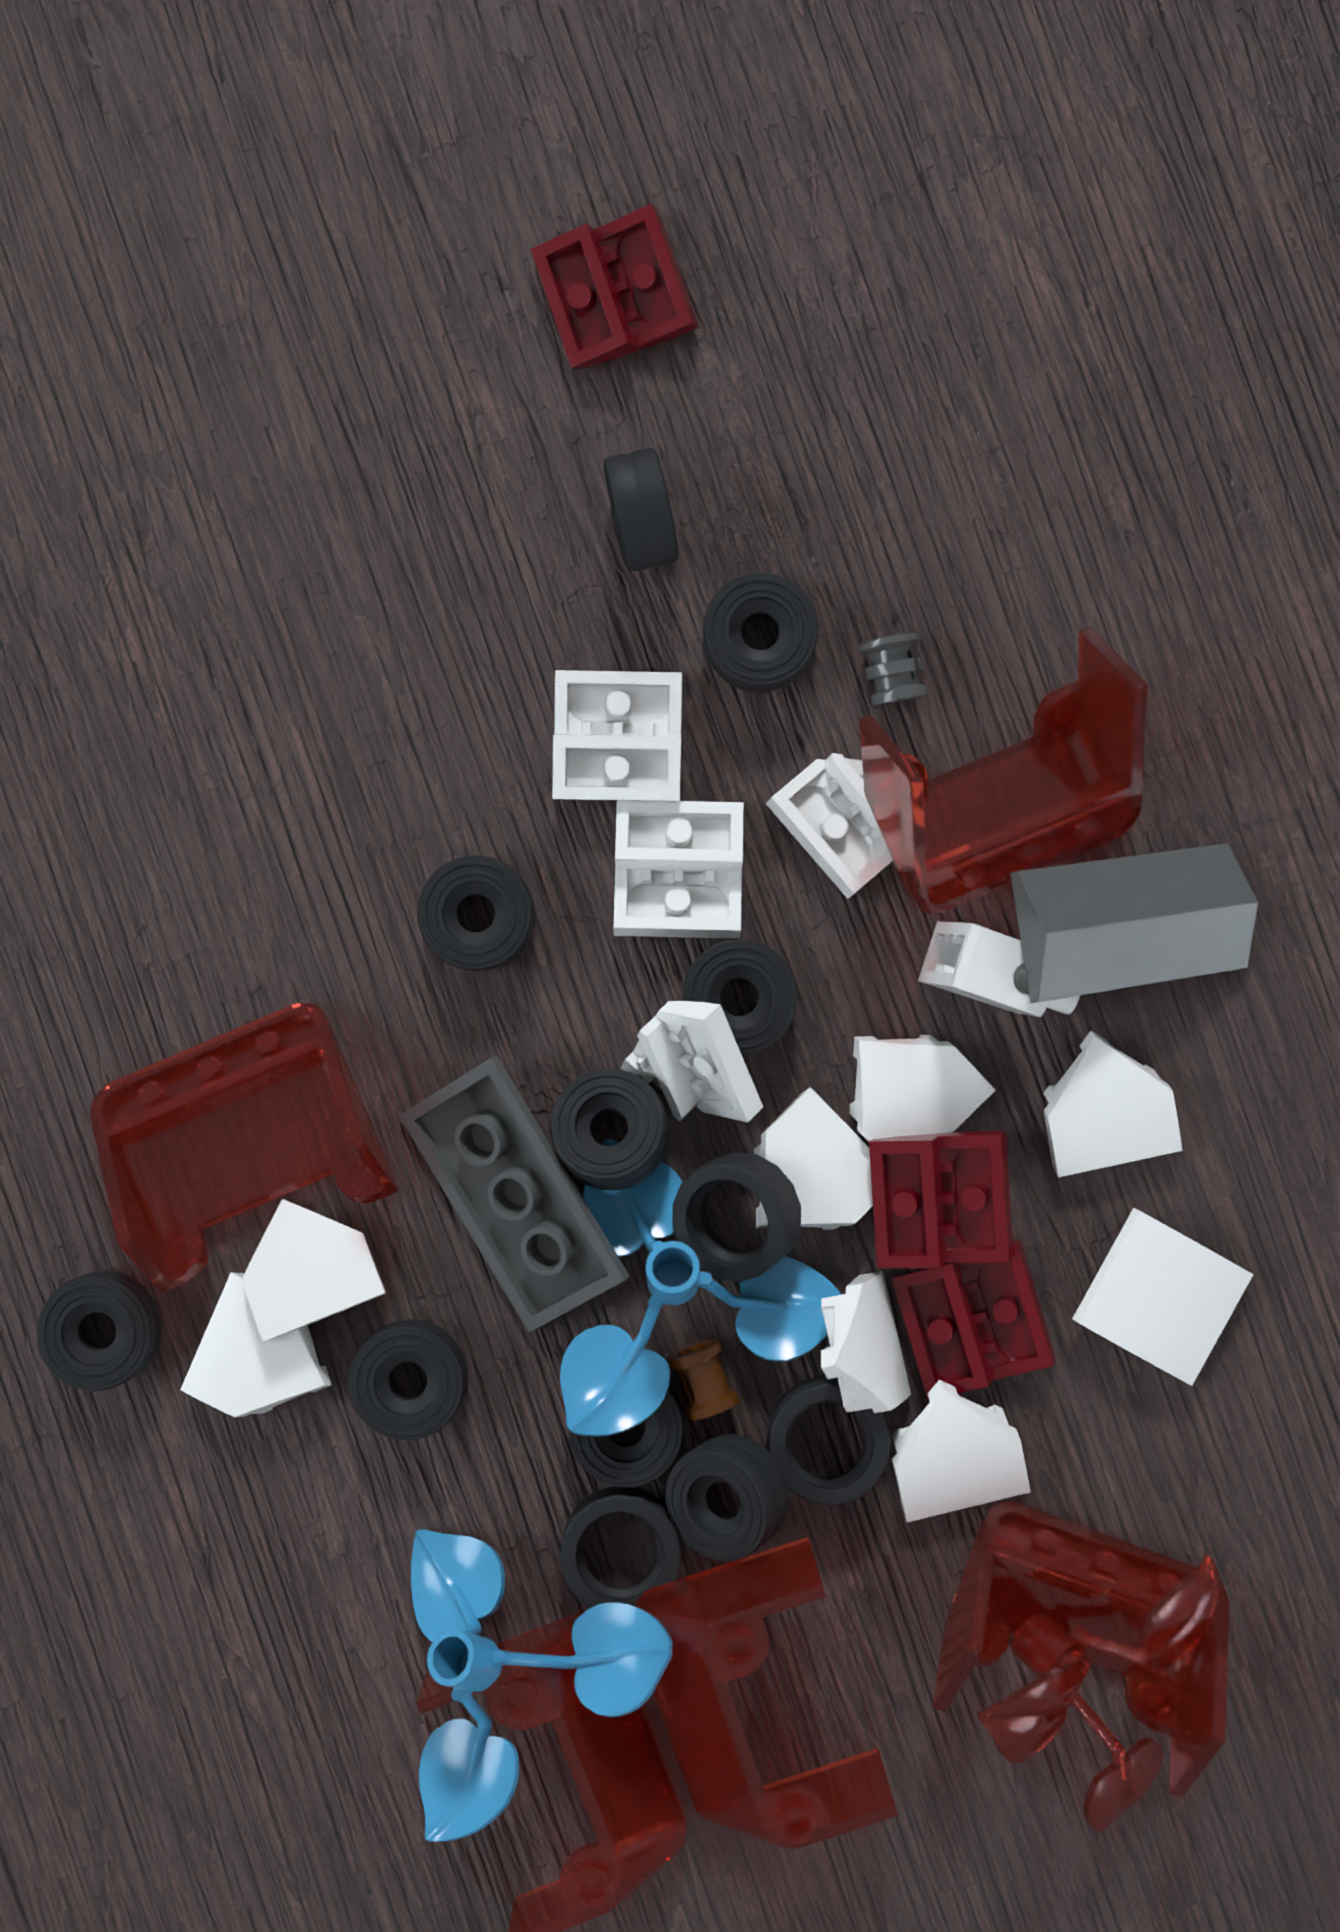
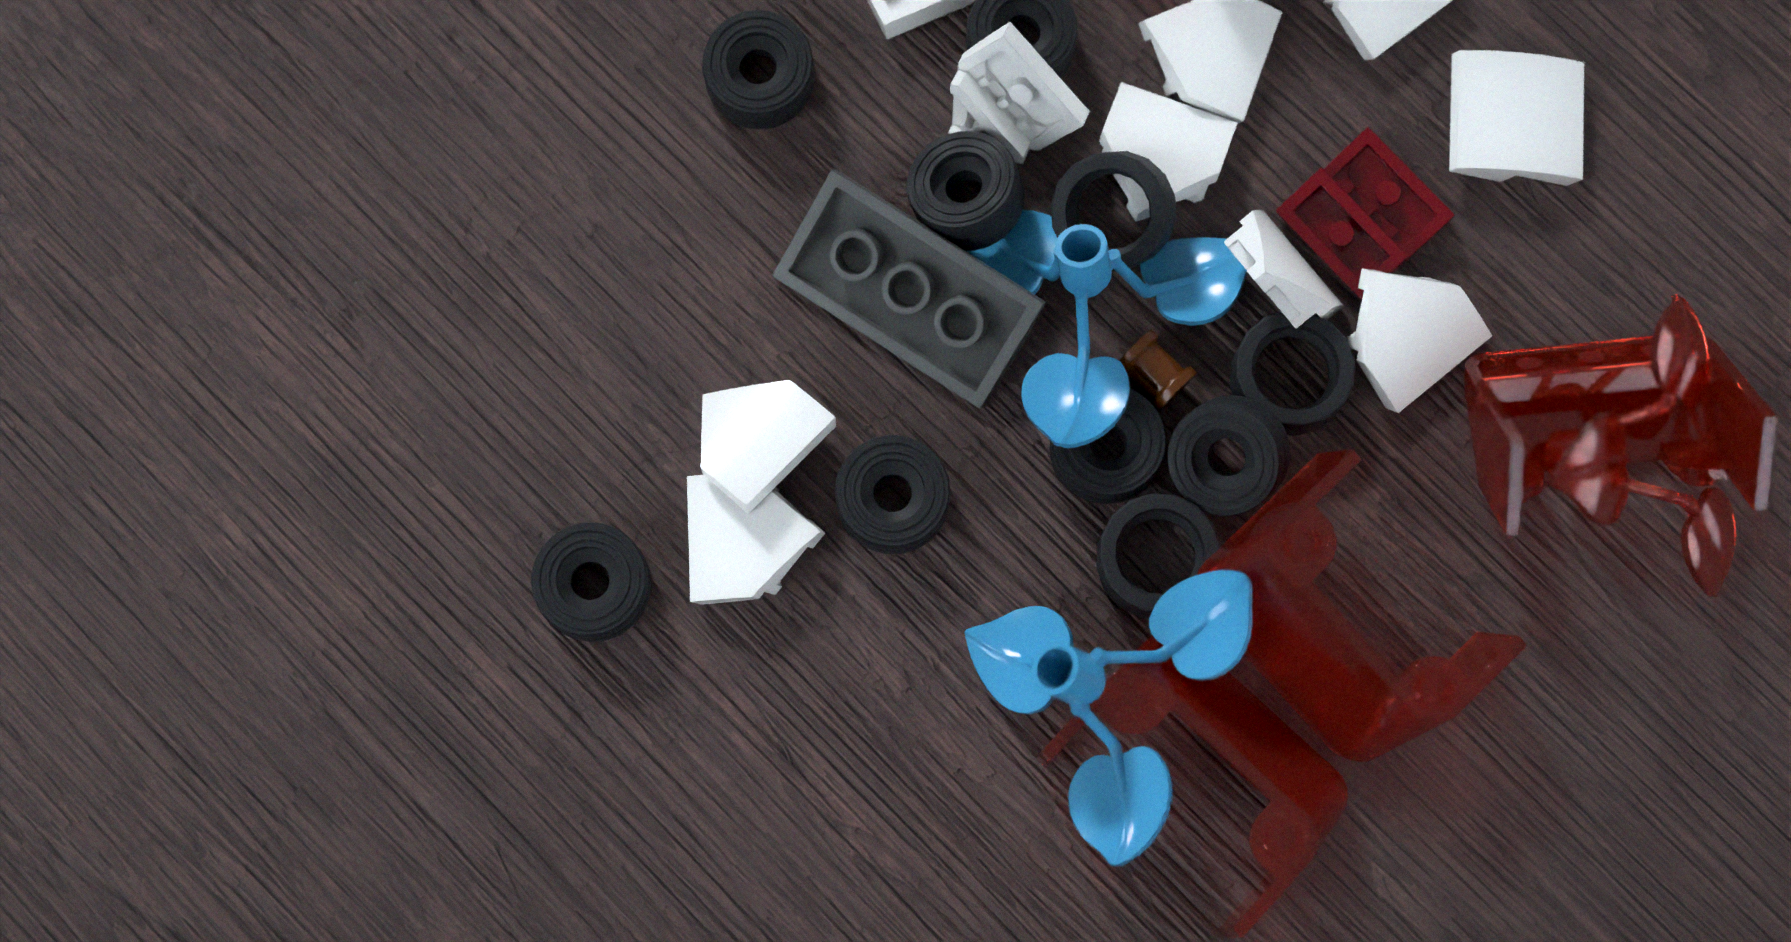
camera: 20 degrees left, 10 degrees down
(231, 1133) = (637, 351): clear red windscreen -> none
(941, 1199) = (1283, 116): dark red slope -> none

